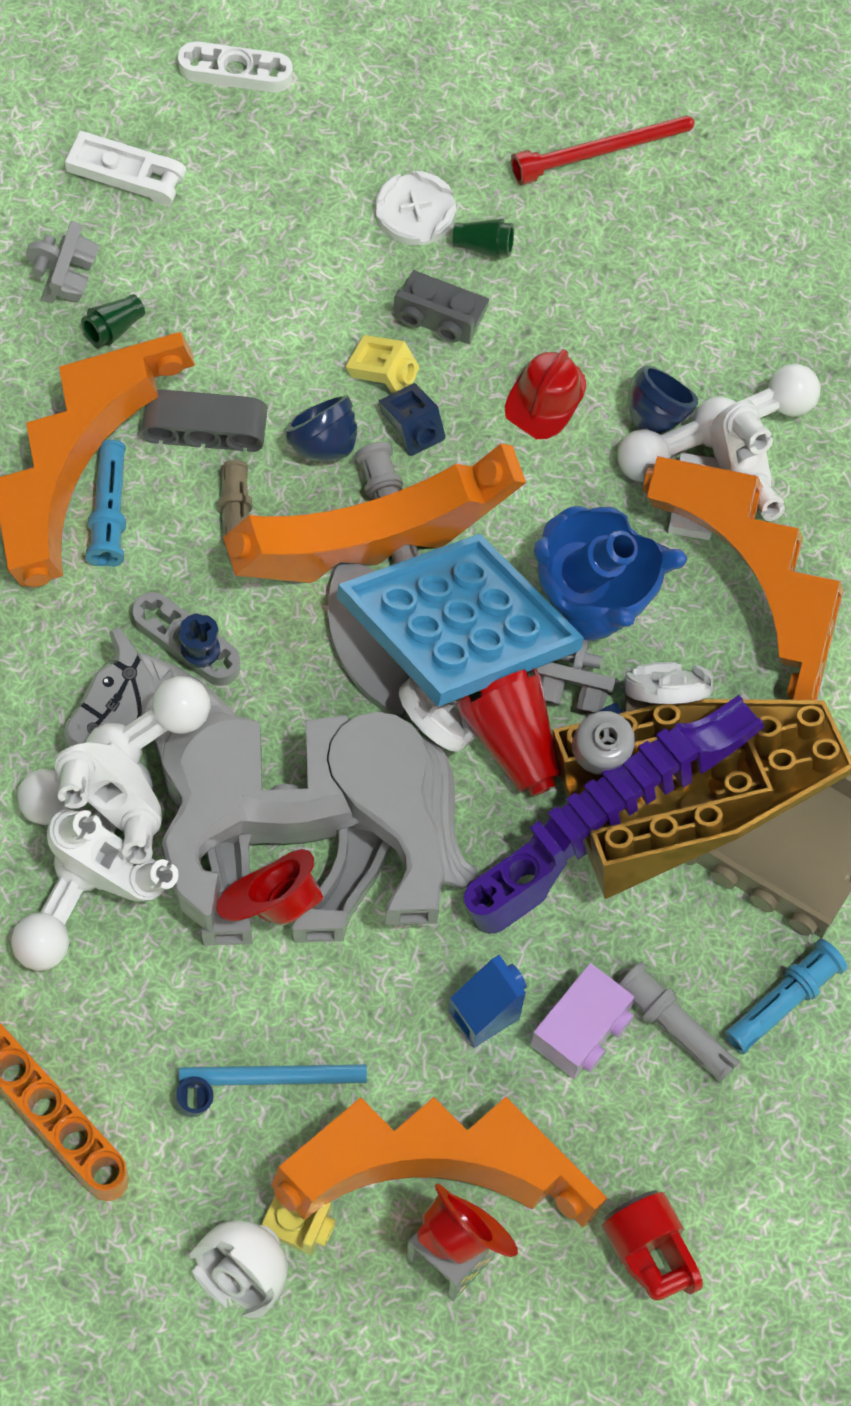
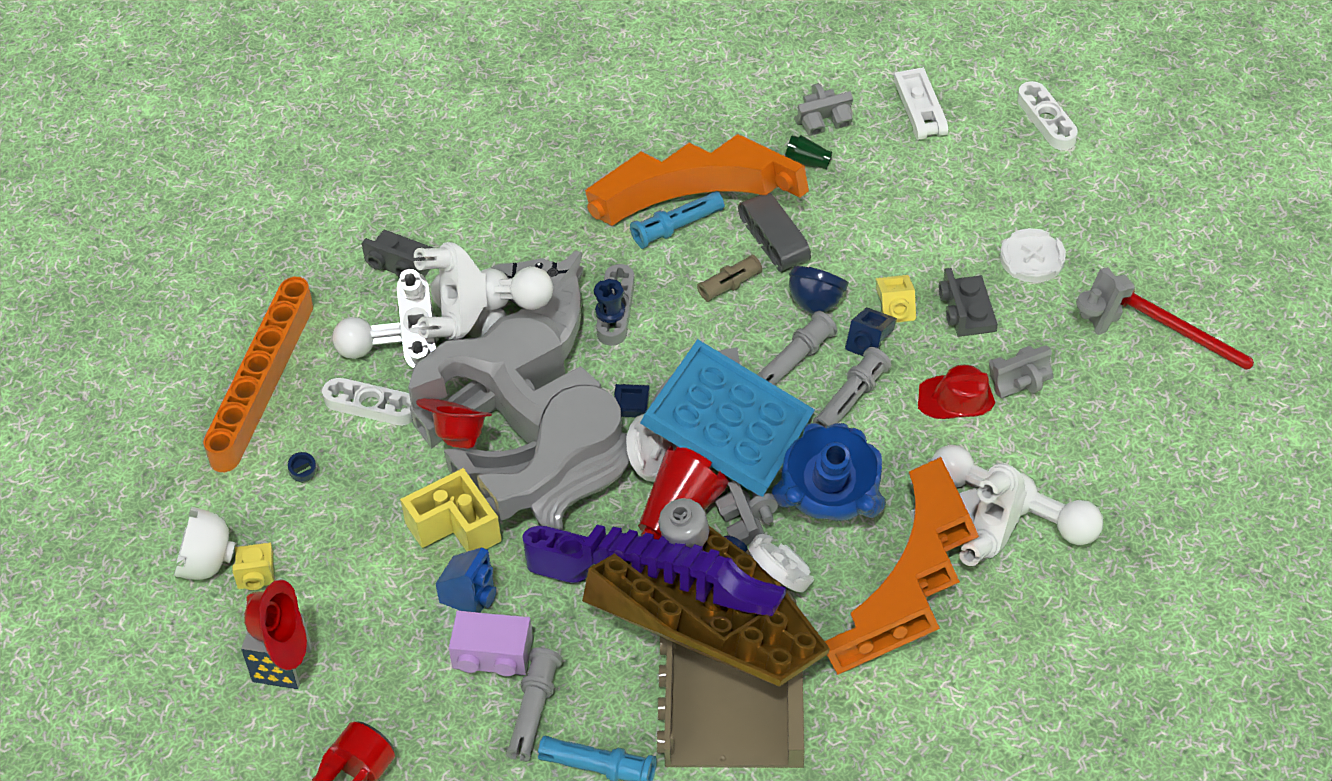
camera: 65 degrees right, 15 degrees down
(174, 960) = (361, 391): none -> white beam
(277, 1074) = (348, 506): dark azure bar -> none
(334, 698) = (632, 399): none -> dark blue tile
(368, 533) = (720, 319): orange arch -> none
(384, 955) = (451, 507): none -> light yellow brick
(465, 451) = (859, 380): none -> light grey pin
(485, 237) = (1043, 300): dark green cone -> none
(496, 1153) = (309, 559): orange arch -> none
(542, 184) = (1103, 301): none -> light grey hips
(576, 316) = (1022, 372): none -> light grey hips
(659, 400) = (1001, 443): dark blue hat -> none

